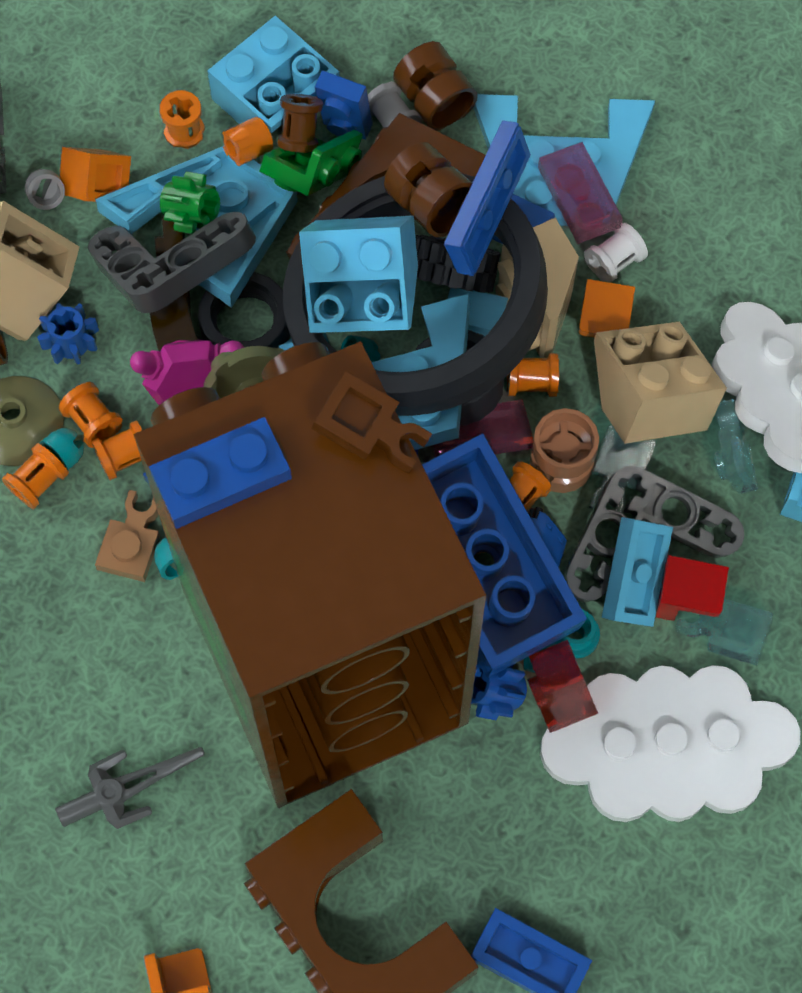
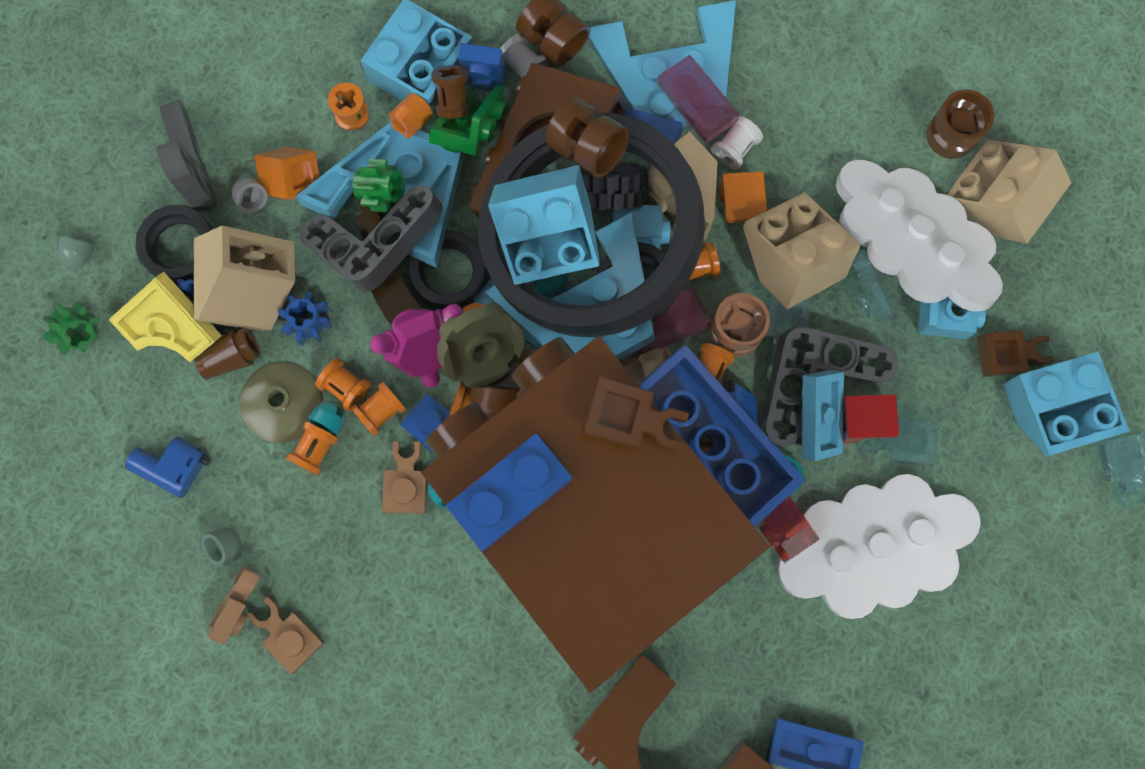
camera: 15 degrees left, 10 degrees up
(111, 793) = (447, 699): dark grey piece -> none
(487, 198) = (638, 135): blue tile -> none

